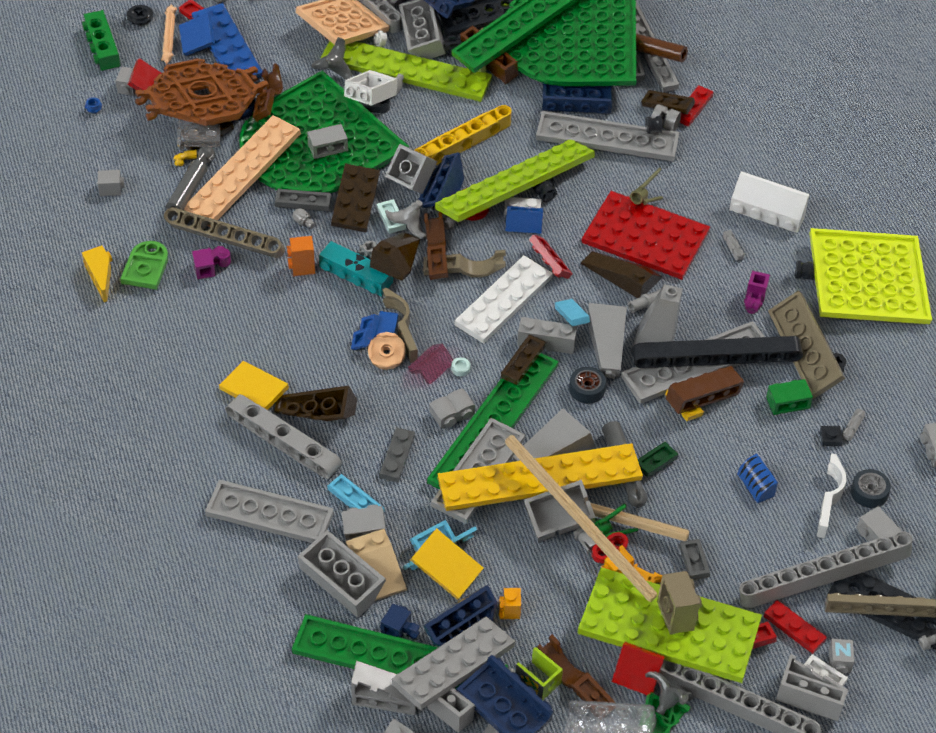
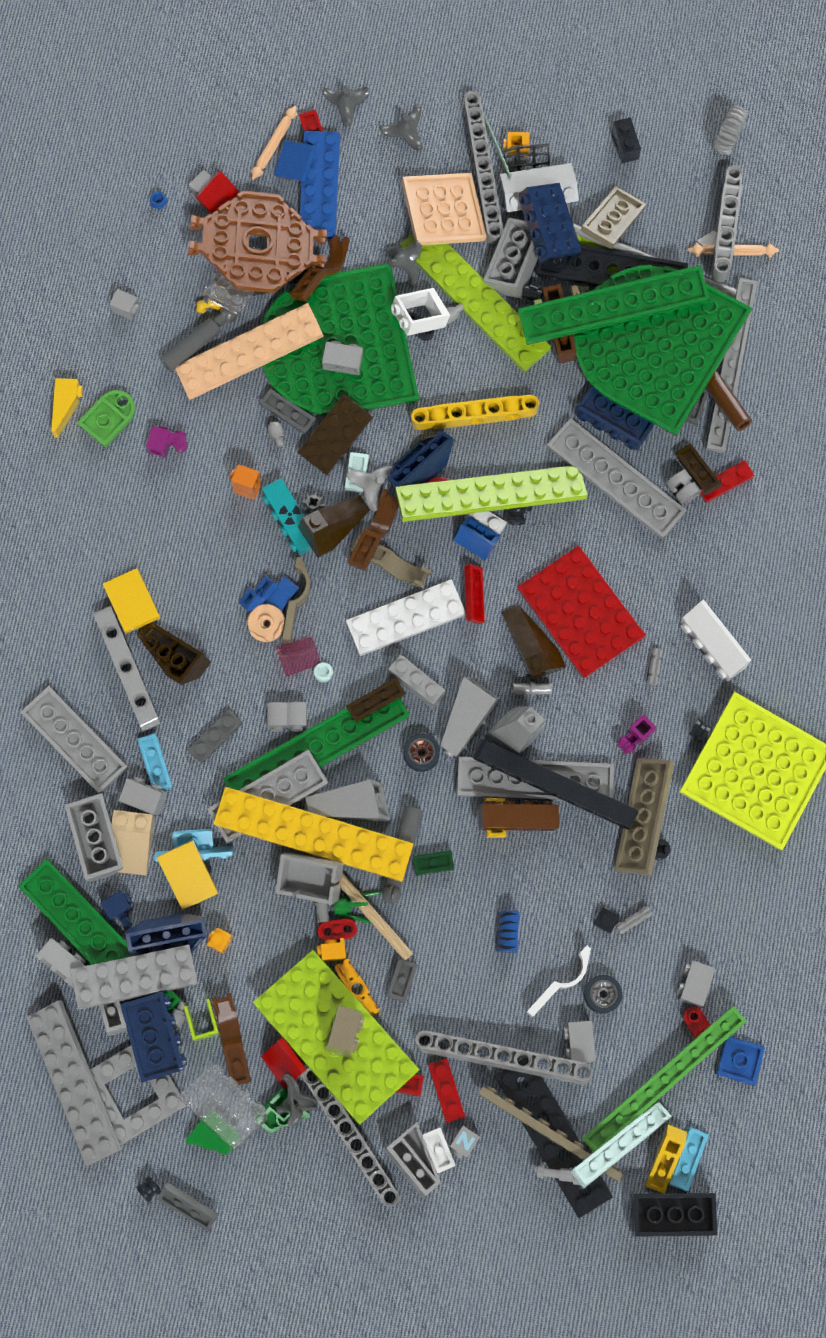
camera: 30 degrees right, 25 degrees up
(101, 40) = (203, 148): green brick -> none
(139, 10) = (263, 98): black gear -> none
(231, 237) = (202, 420): dark tan beam -> none
(380, 38) = (469, 248): white plate -> none
(410, 168) = (400, 431): light grey brick -> none
(572, 312) = (451, 670): medium azure tile -> none
(581, 518) = (314, 901): tan axle -> none
(640, 195) = (599, 568): olive plant -> none
(653, 124) = (663, 493): black wheel -> none
(789, 396) = (593, 861): green brick -> none

